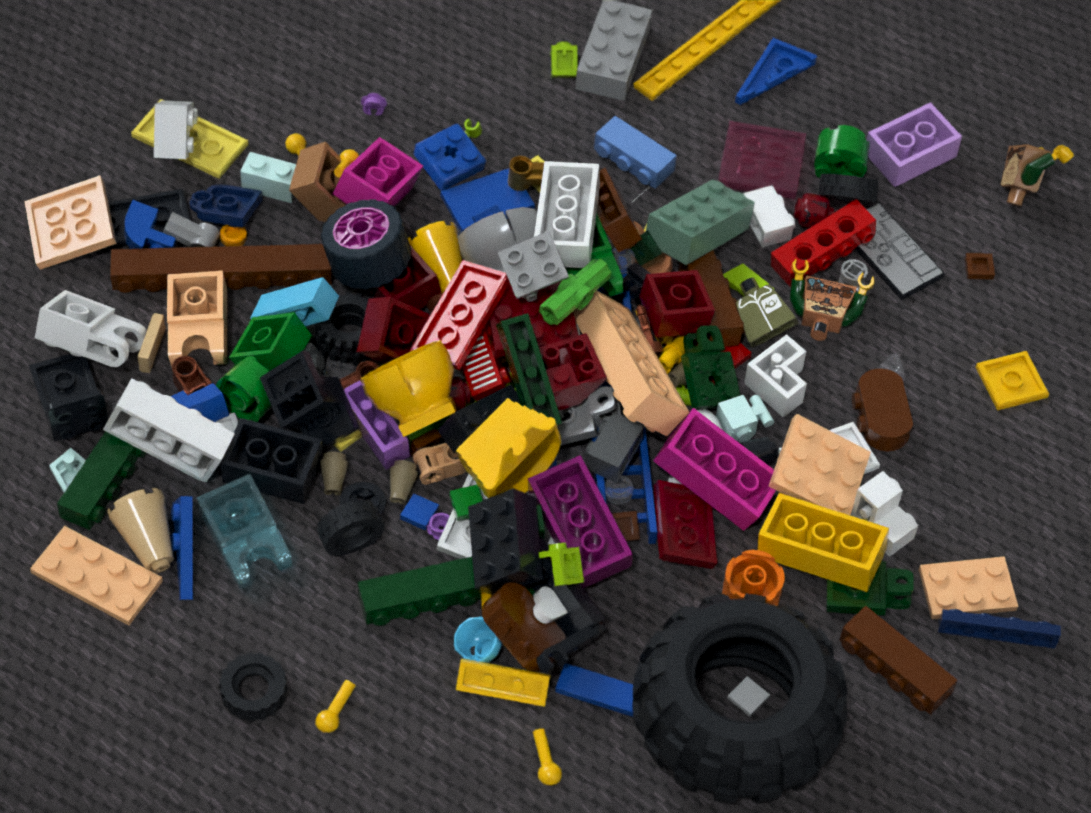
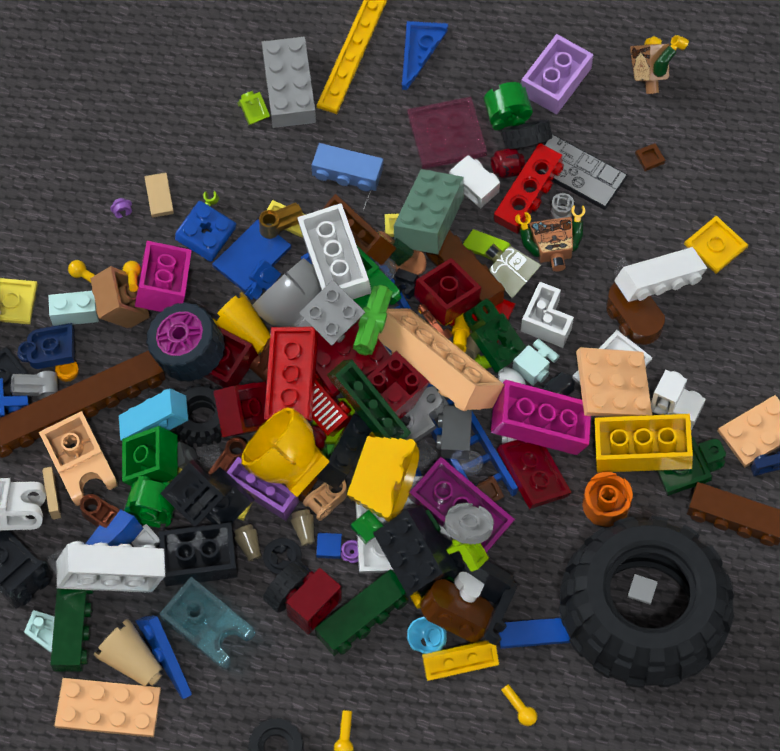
camera: 20 degrees left, 10 degrees up
(370, 552) = (313, 600): none -> dark red brick
(420, 107) = (159, 195): none -> tan tile
(576, 533) = (469, 523): none -> light grey tile
(928, 379) = (660, 274): none -> white brick

